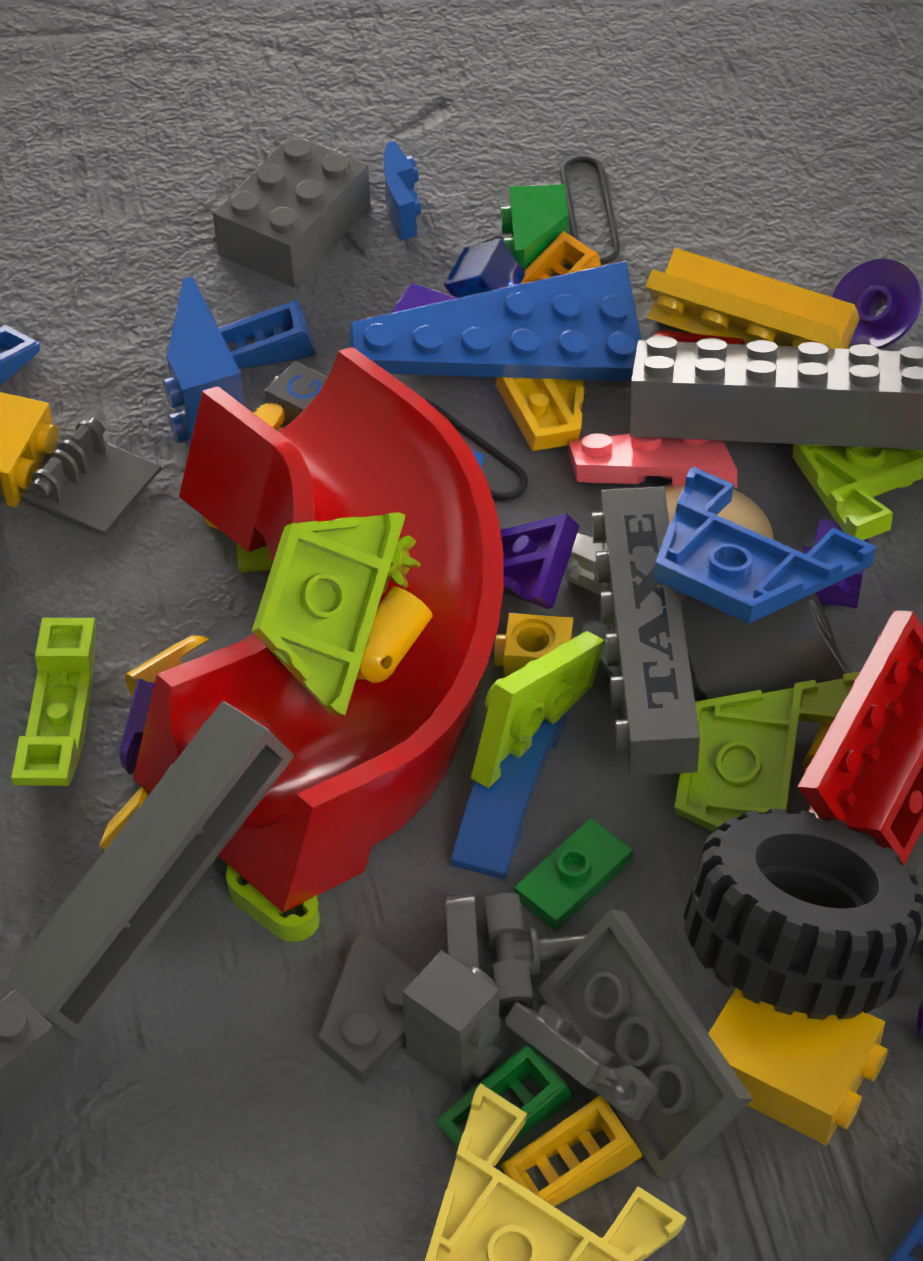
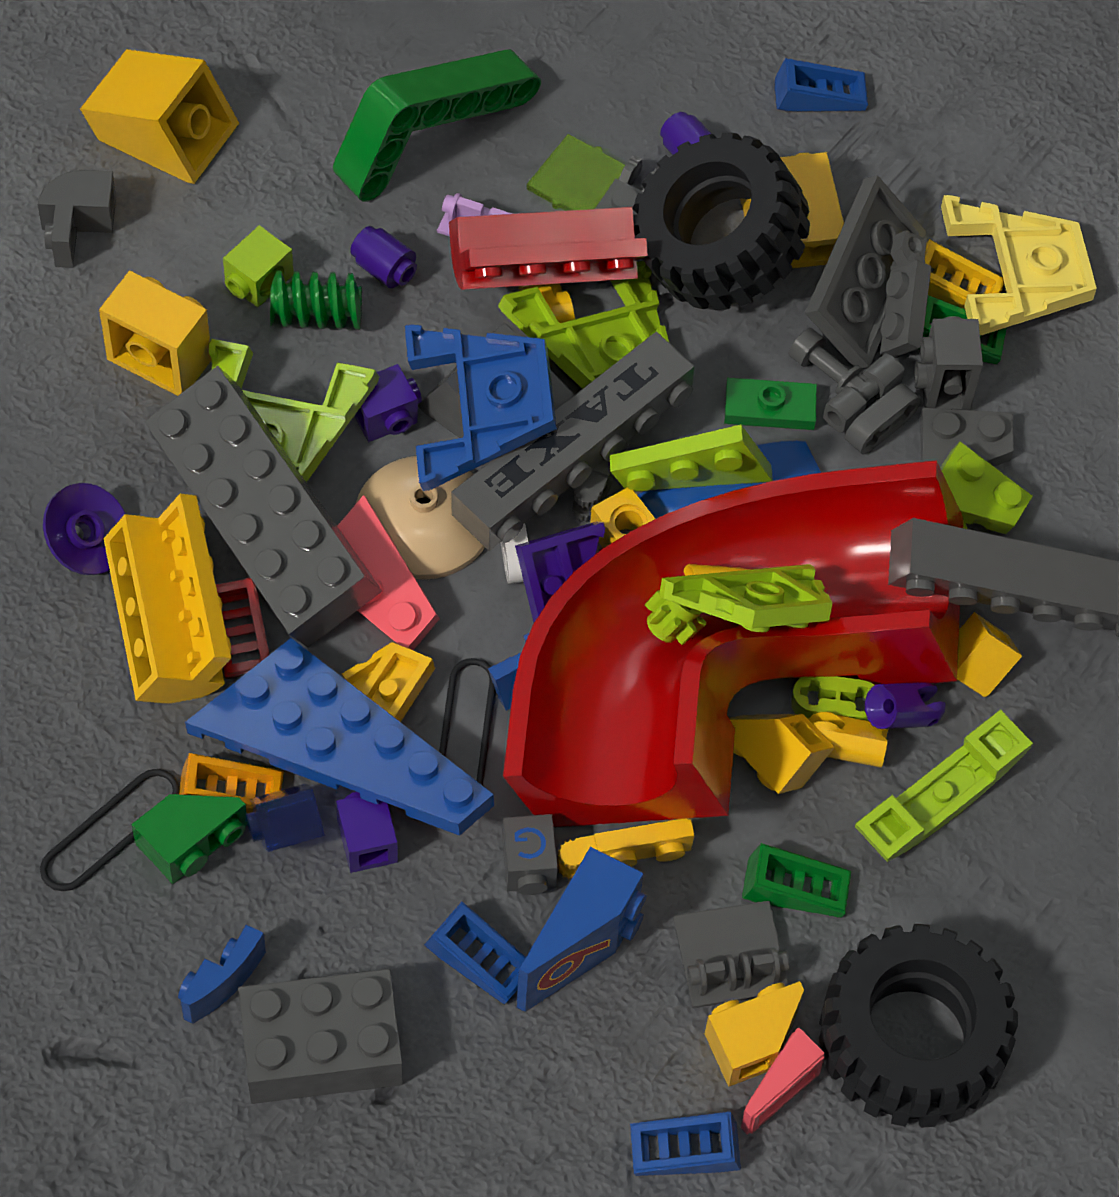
camera: 135 degrees left, 10 degrees up
(100, 539) = (780, 861): none -> green slope
(213, 607) = (780, 748): none -> yellow slope
(302, 949) = (983, 491): none -> lime wing

